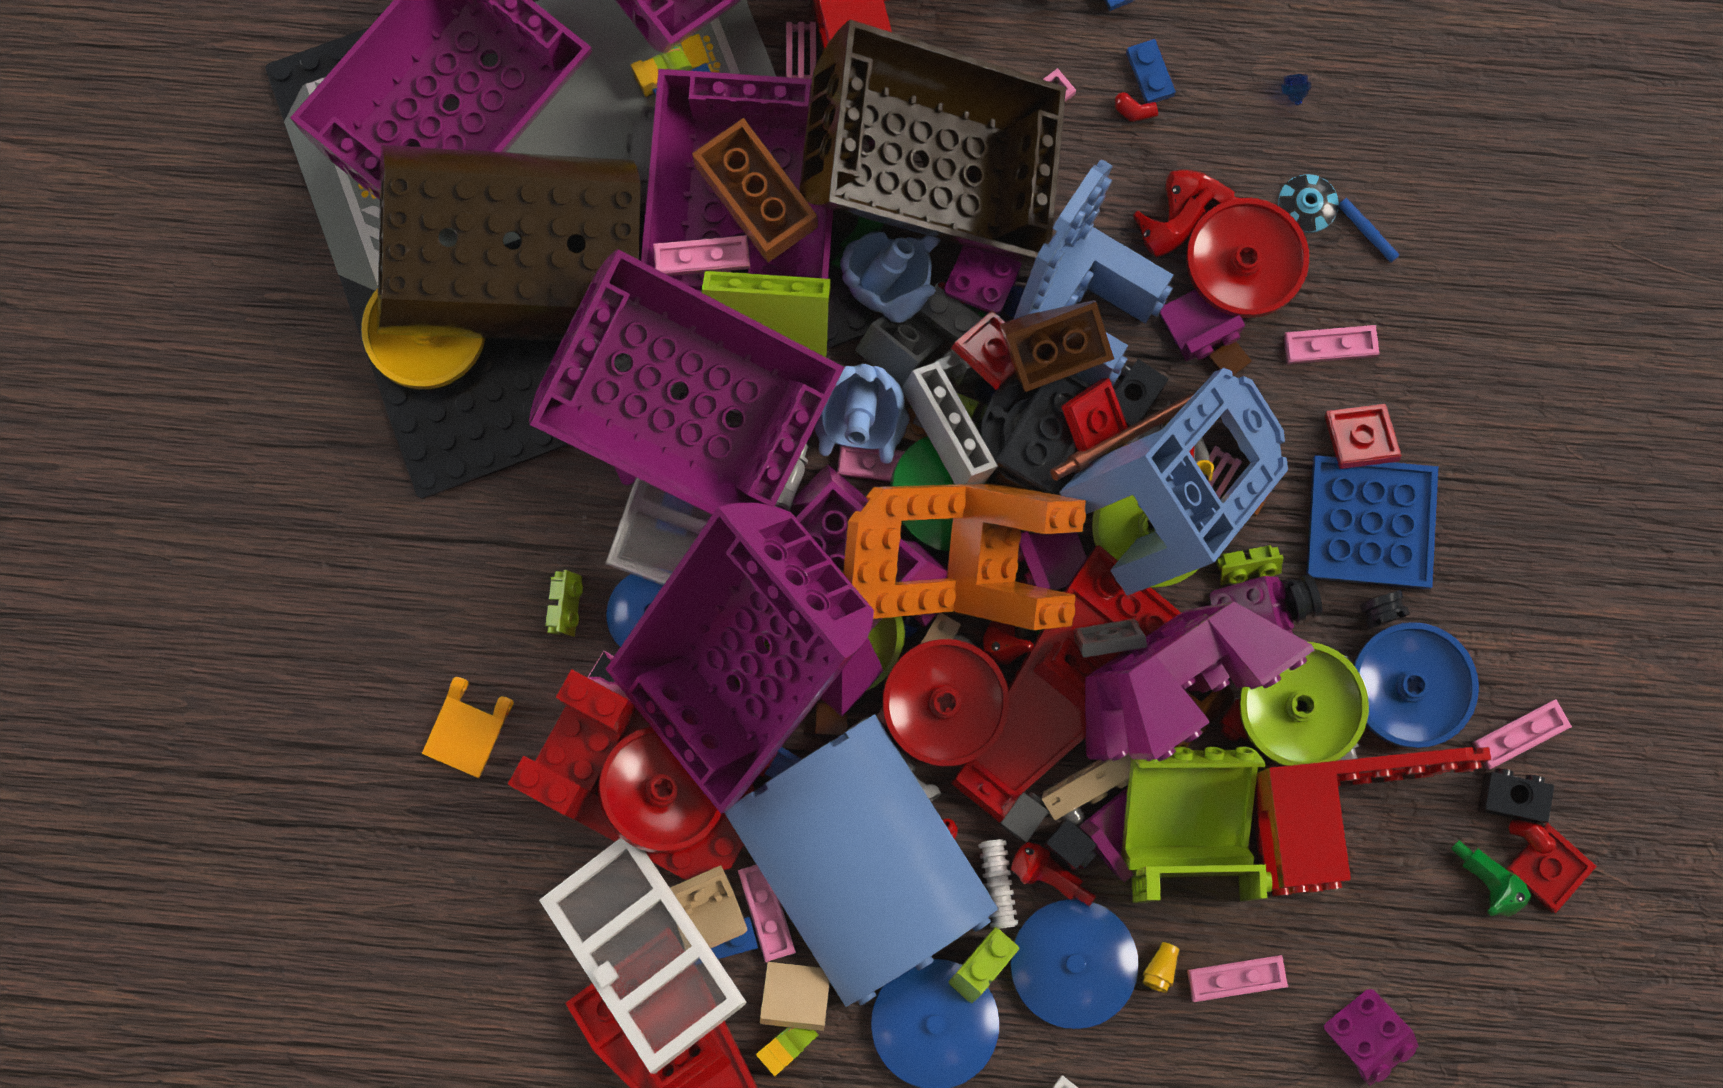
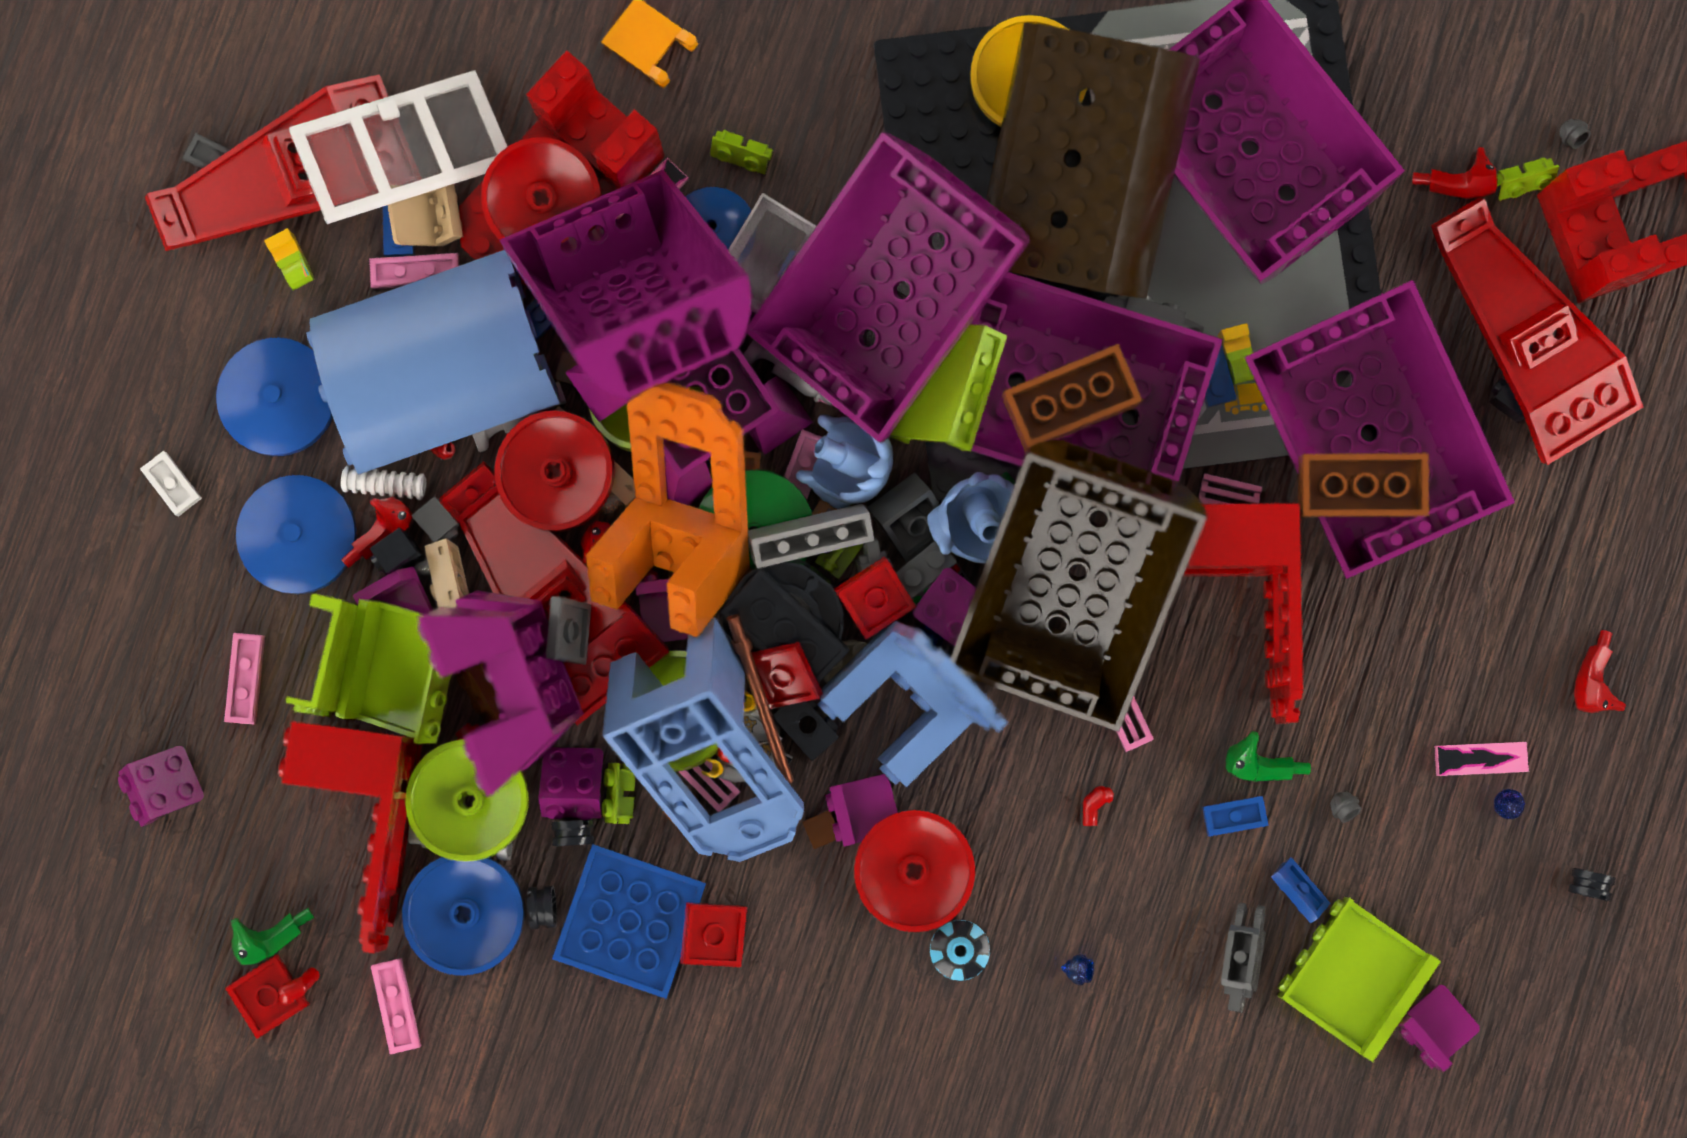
camera: 105 degrees right, 5 degrees up
(702, 255) = (1023, 336): bright pink tile -> none
(795, 996) = (330, 275): tan tile -> none
(983, 965) = (312, 449): lime brick -> none
(1056, 343) = (856, 648): reddish brown slope -> none
(1150, 71) = (1129, 830): blue plate -> none
(1161, 970) = (270, 611): yellow cone -> none
(1165, 237) = (955, 797): red animal -> none
(1190, 183) = (1003, 834): red animal -> none
(1331, 344) = (812, 932): bright pink tile -> none
(1368, 230) = (917, 1001): blue piece -> none
(1535, 801) = (324, 993): black brick -> none

